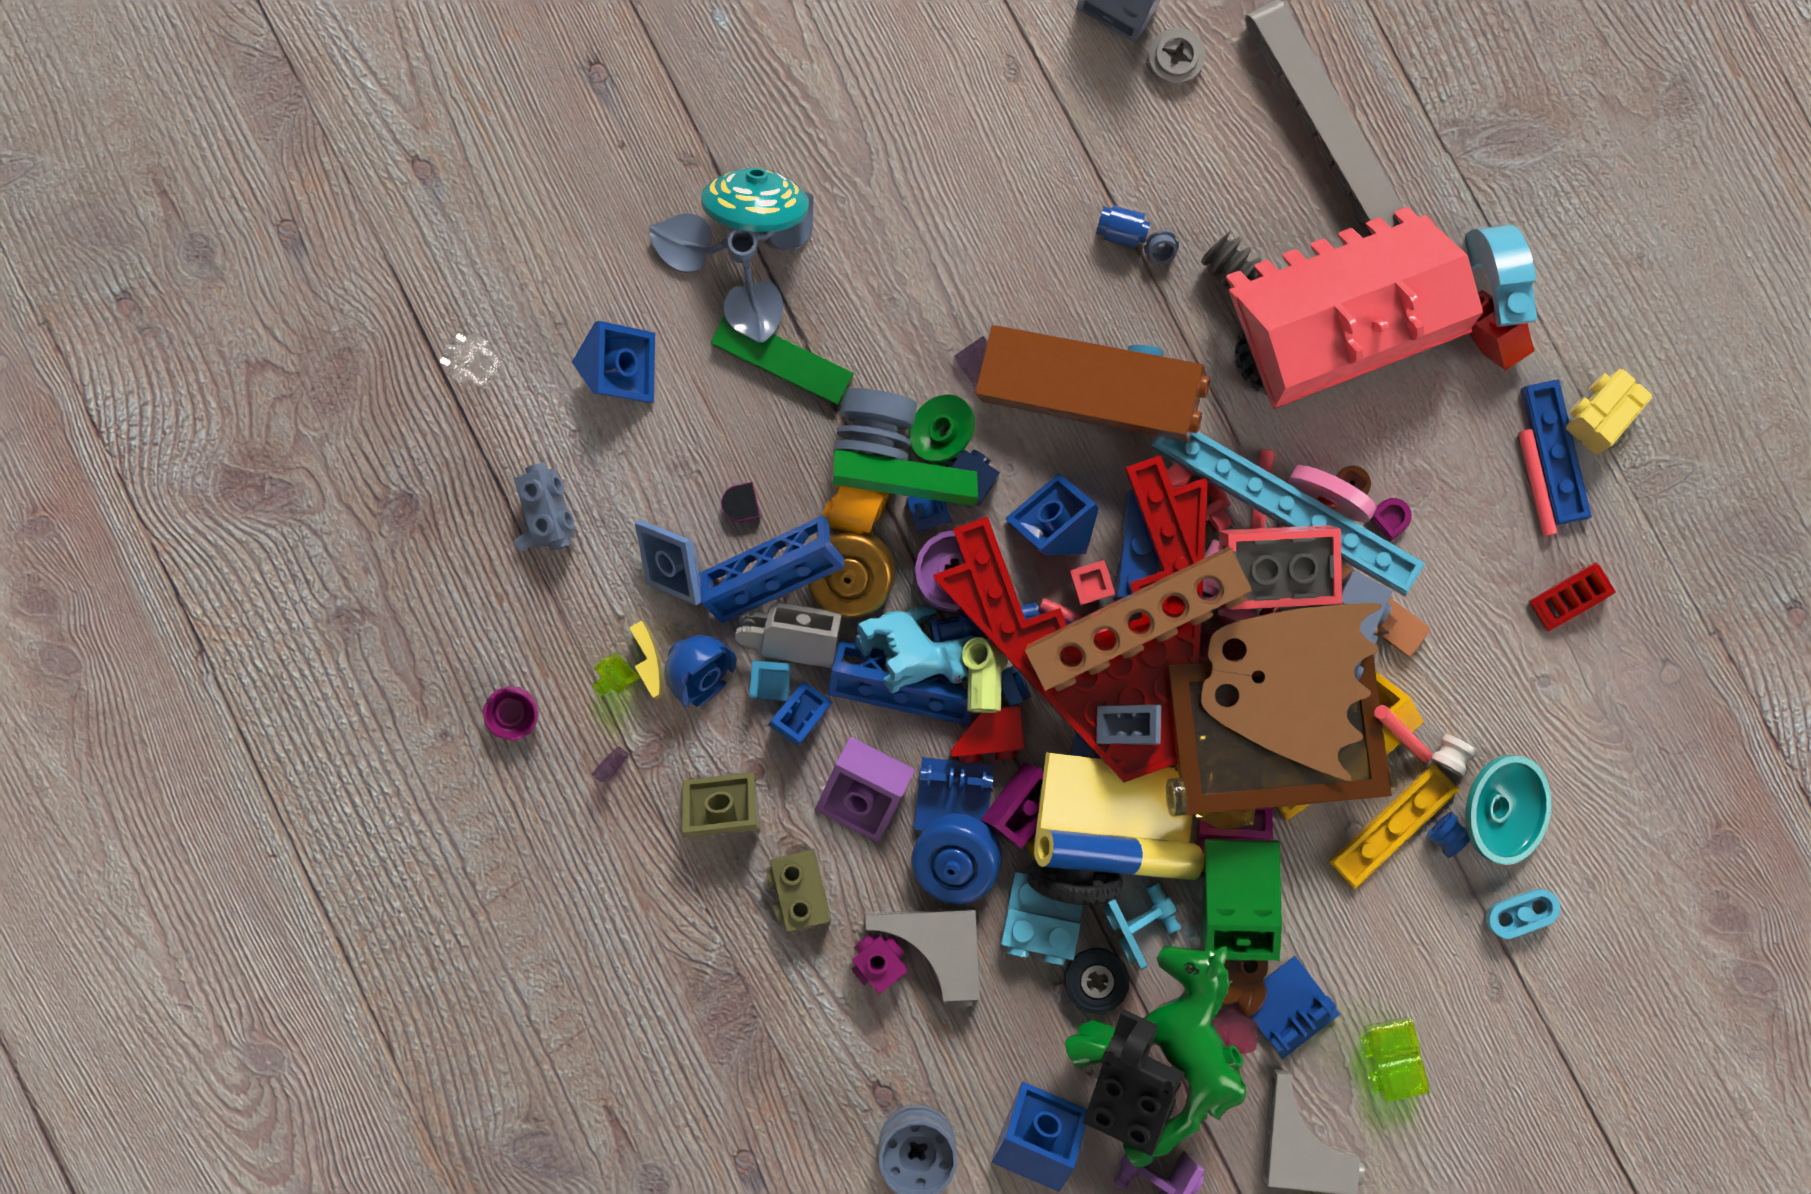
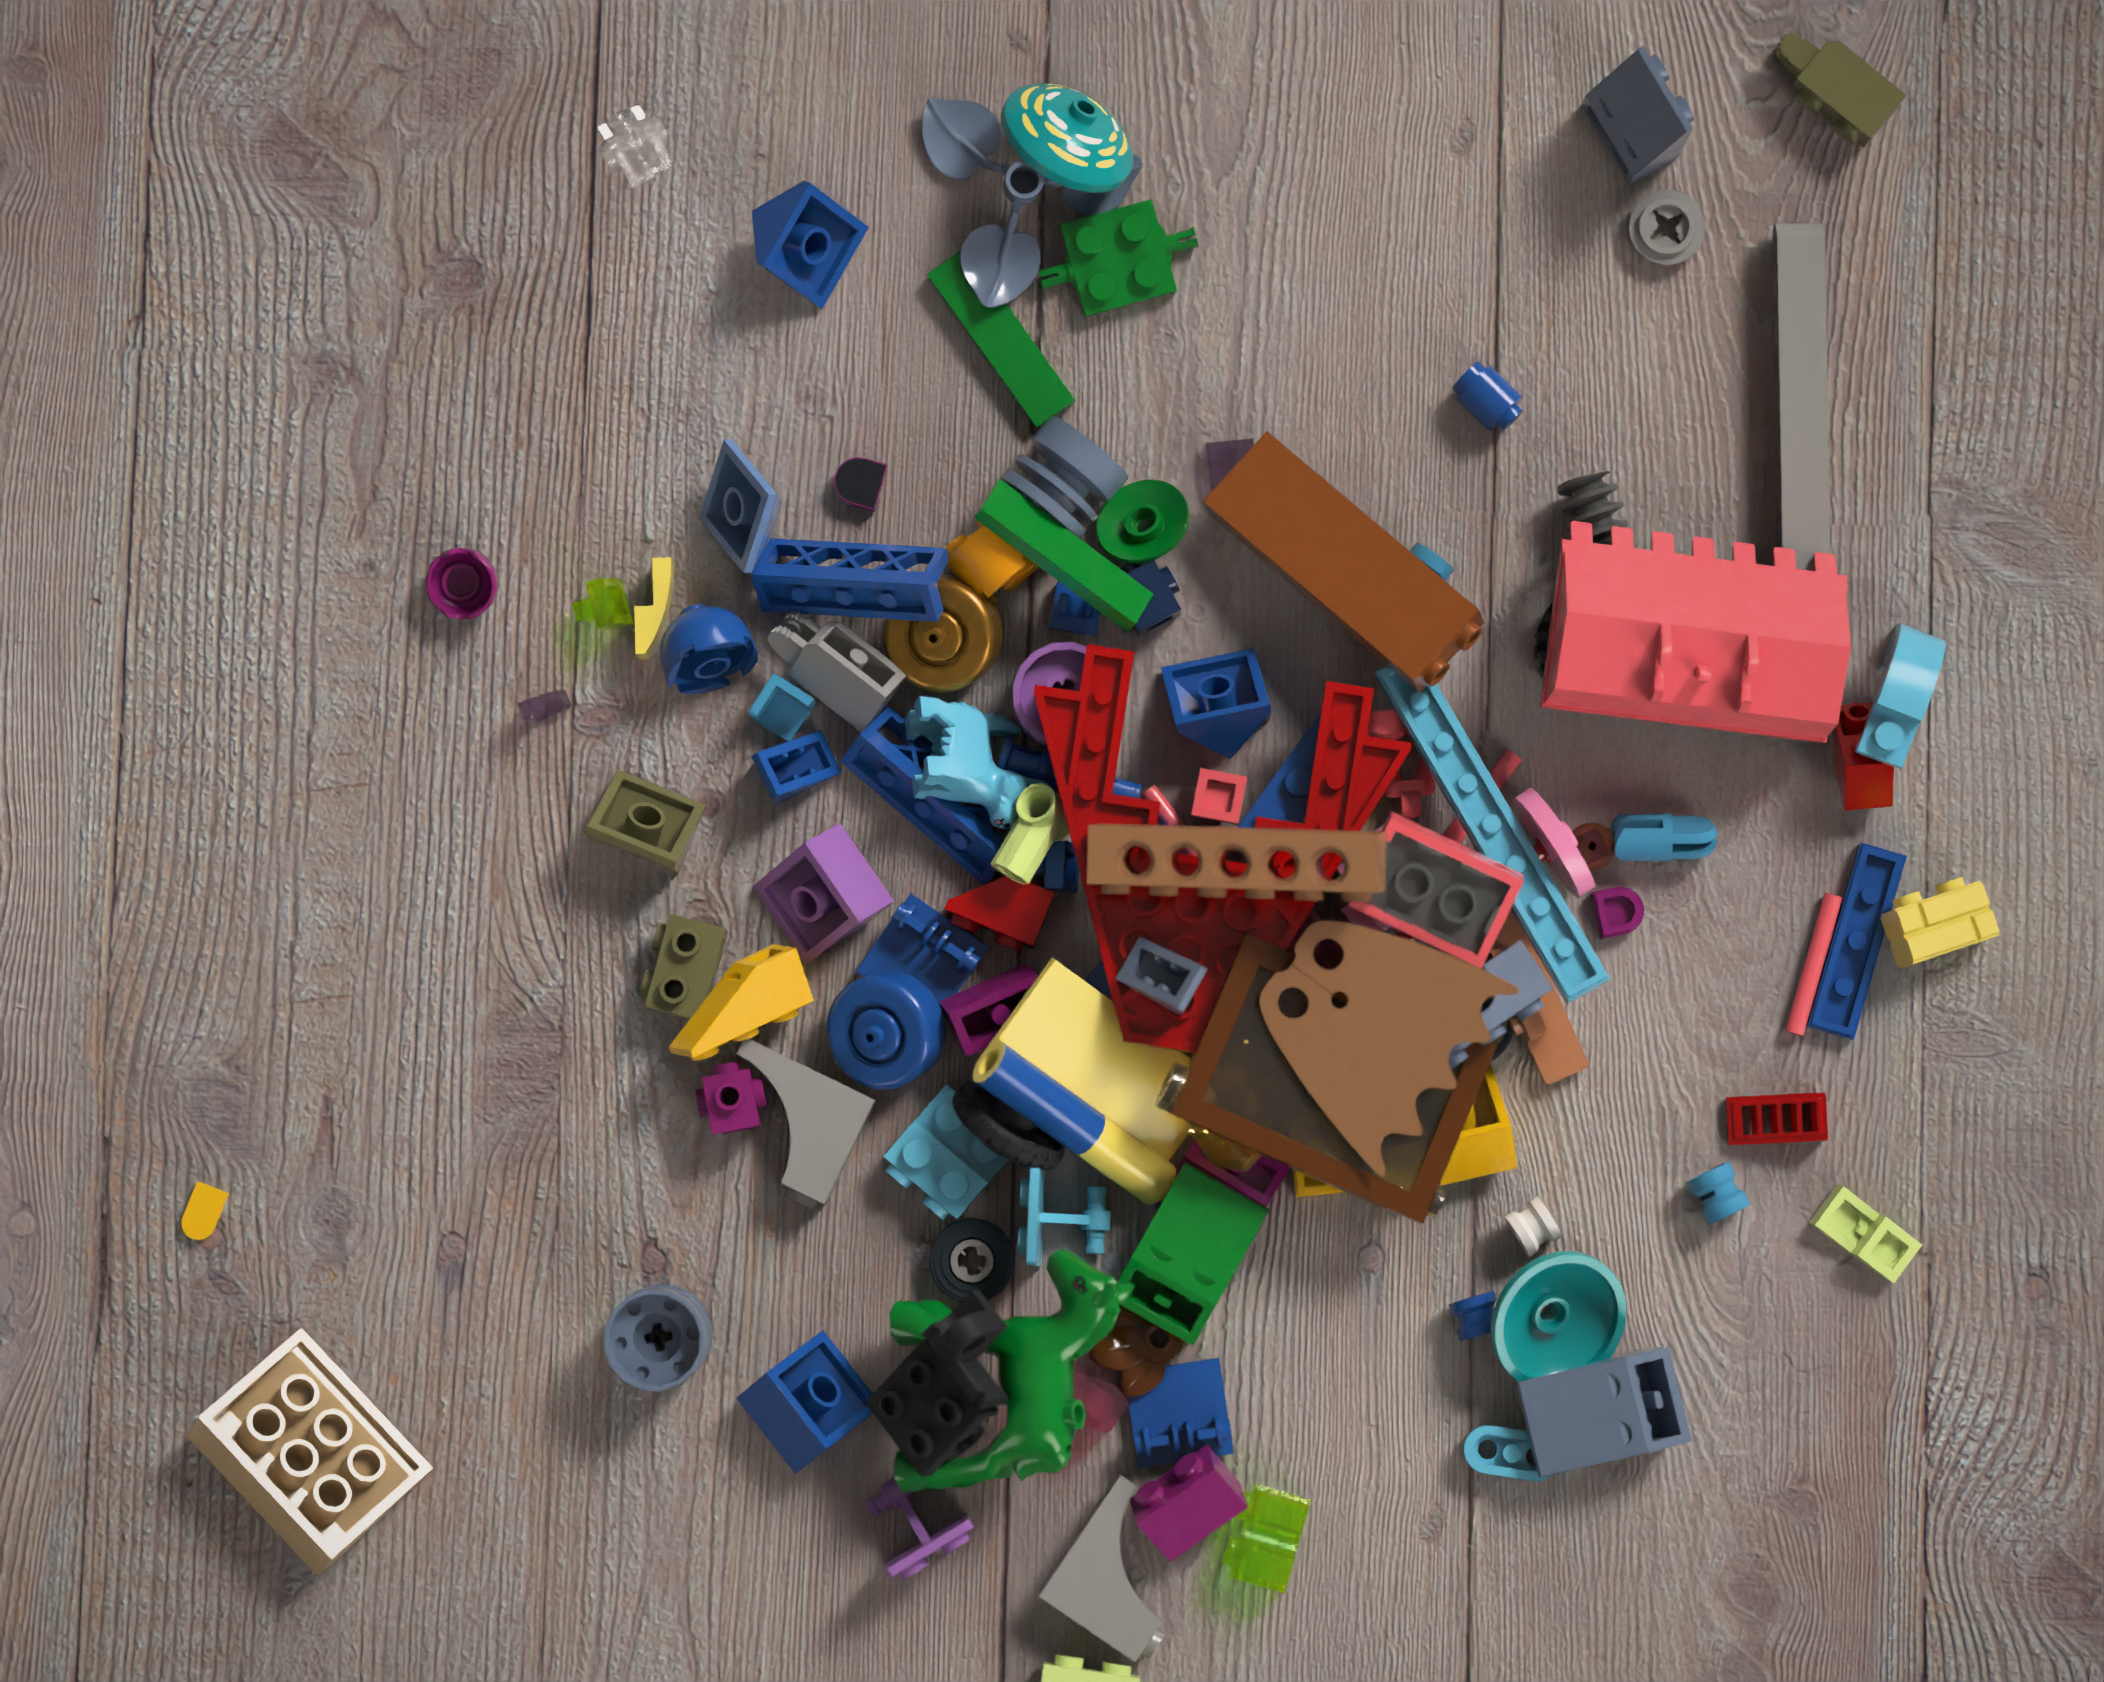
camera: 30 degrees right, 0 degrees up
(544, 509) = (627, 367): sand blue brick -> none
(830, 265) = (1118, 258): none -> green plate
(853, 886) = (750, 994): none -> yellow slope
(1164, 253) = (1518, 454): sand blue plate -> none
(1332, 1067) = (1188, 1502): none -> magenta brick
(1393, 826) = (1418, 1271): yellow tile -> none
(1395, 452) = (1662, 837): none -> dark azure arm
(1402, 733) = (1481, 1165): coral bar -> none
(1562, 666) = (1718, 1193): none -> dark azure wheel
(1573, 852) = (1604, 1411): none -> sand blue slope
(1670, 640) = (1865, 1233): none -> yellowish green slope

